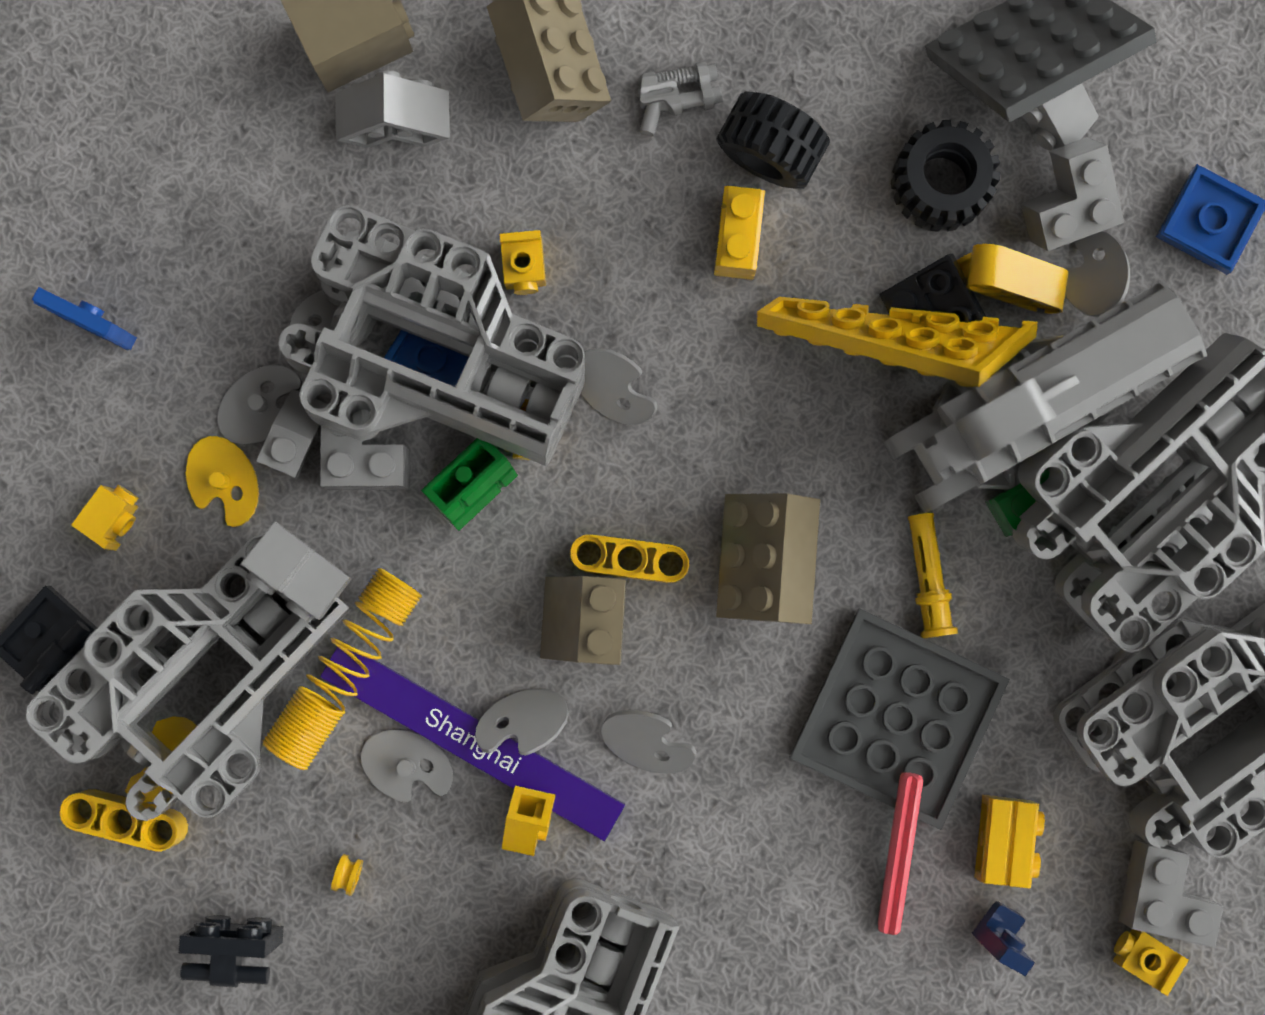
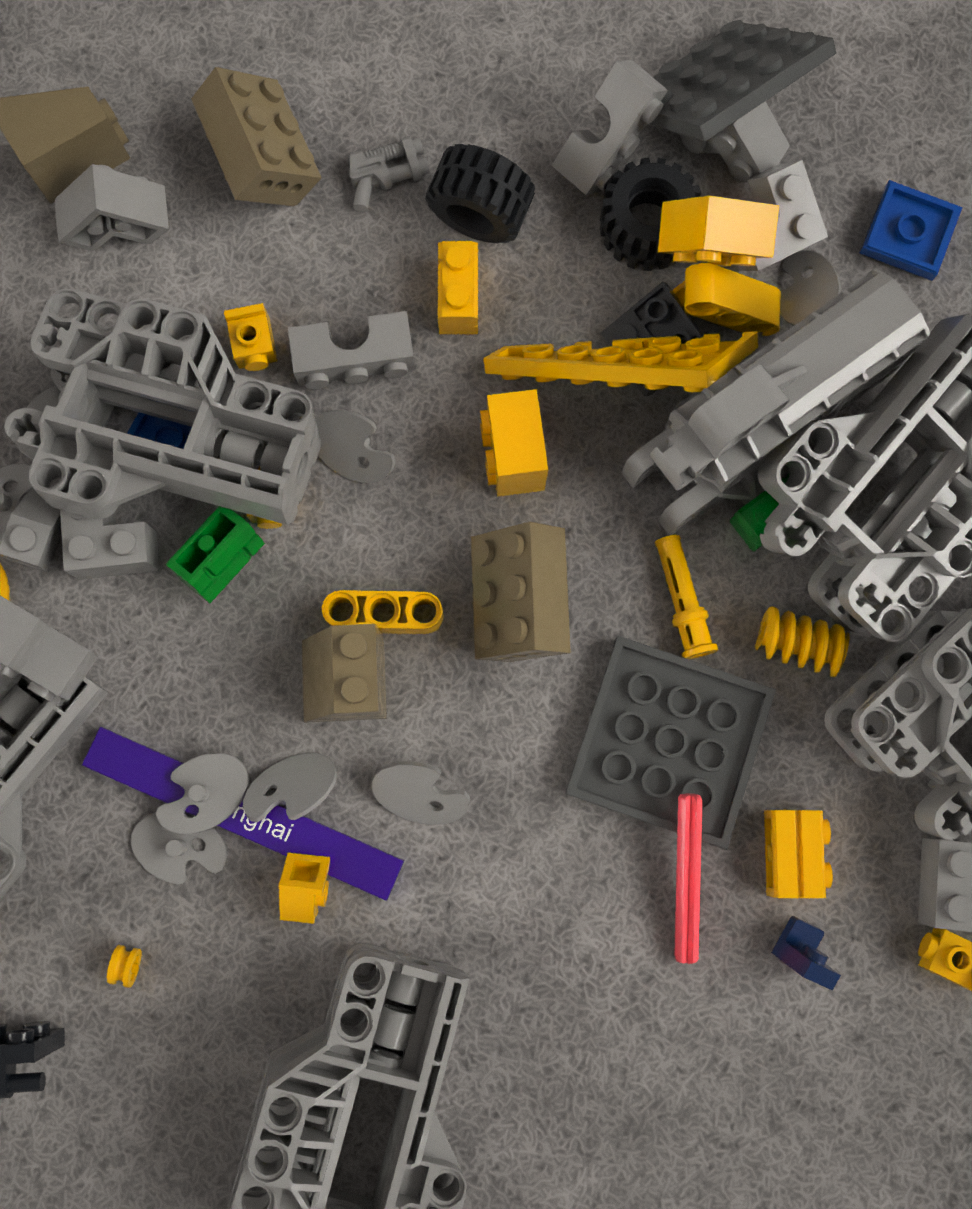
camera: 10 degrees left, 5 degrees down
(311, 717) = (70, 805): yellow piece -> none
(446, 709) = (211, 783): none -> light grey piece
(659, 290) = (384, 352): none -> light grey arch
(780, 404) = (516, 441): none -> yellow brick
(939, 61) = (632, 101): none -> light grey arch
(1010, 214) = (718, 230): none -> yellow brick
(1043, 633) = (803, 640): none -> yellow piece

